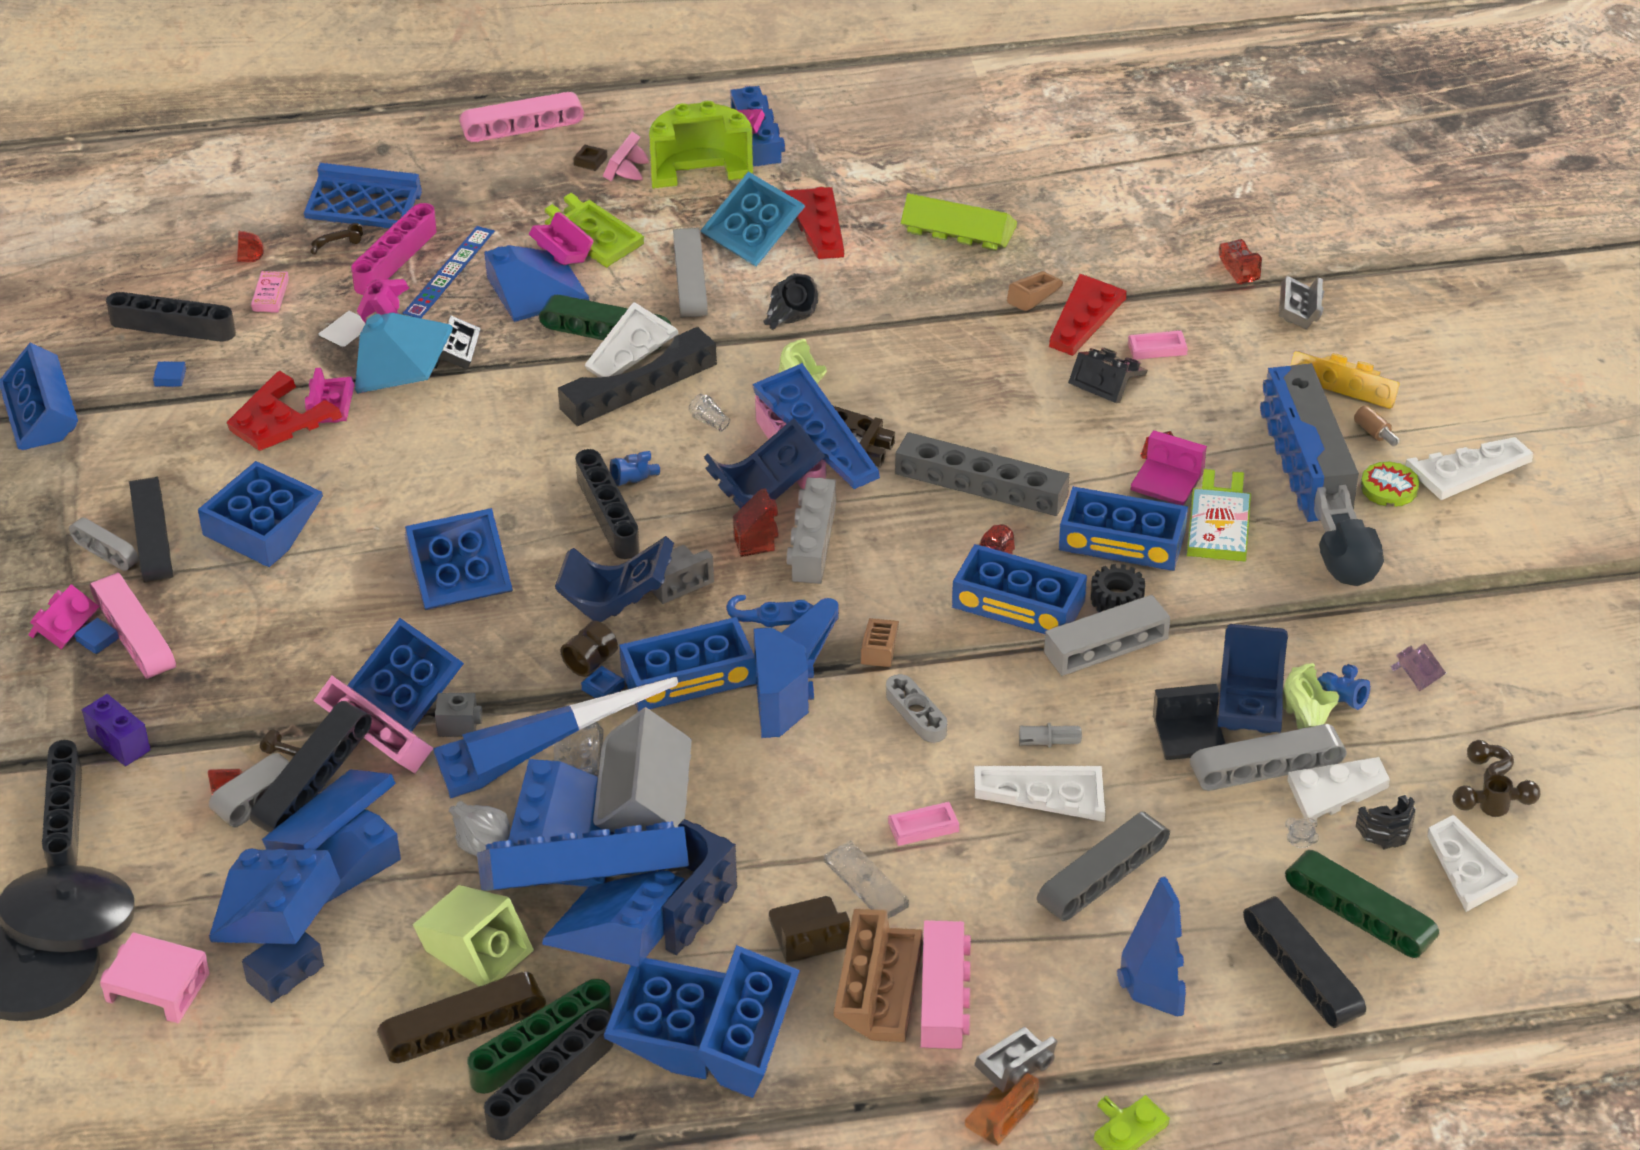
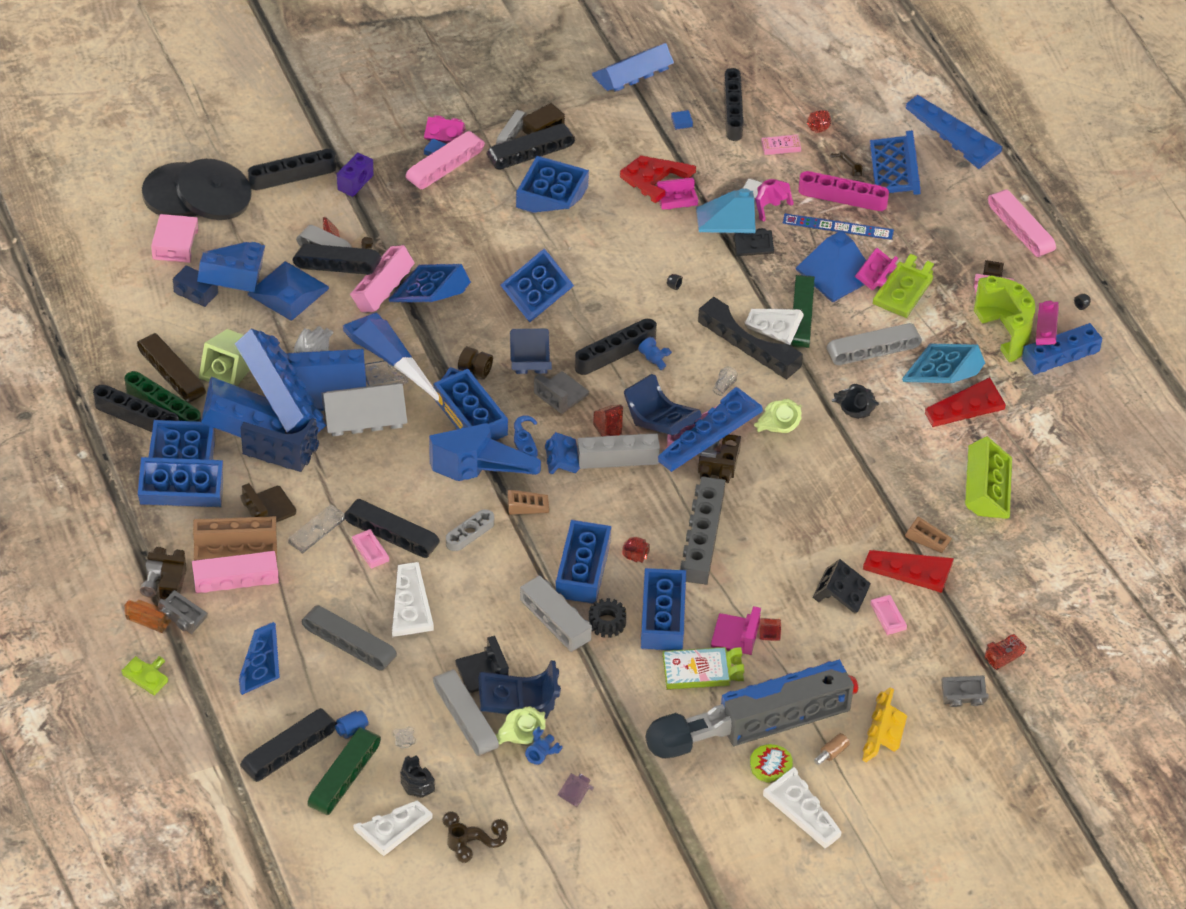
camera: 75 degrees right, 5 degrees up
(106, 505) = (542, 119): none -> dark brown brick
(329, 810) = (309, 276): blue tile -> none
(343, 134) = (973, 144): none -> blue wing
(457, 714) = (405, 315): dark grey brick -> none
(498, 429) = (674, 281): none -> black hinge
(674, 98) = (1082, 301): none -> black hinge
(788, 587) = (562, 453): none -> blue bracket
(894, 789) = (392, 528): none -> black beam
(924, 1073) = (165, 567): none -> dark brown hips
(1049, 735) = (460, 598): light grey axle -> none
(1274, 881) = (350, 723): none -> blue brick
(1332, 786) = (452, 752): white wing -> none

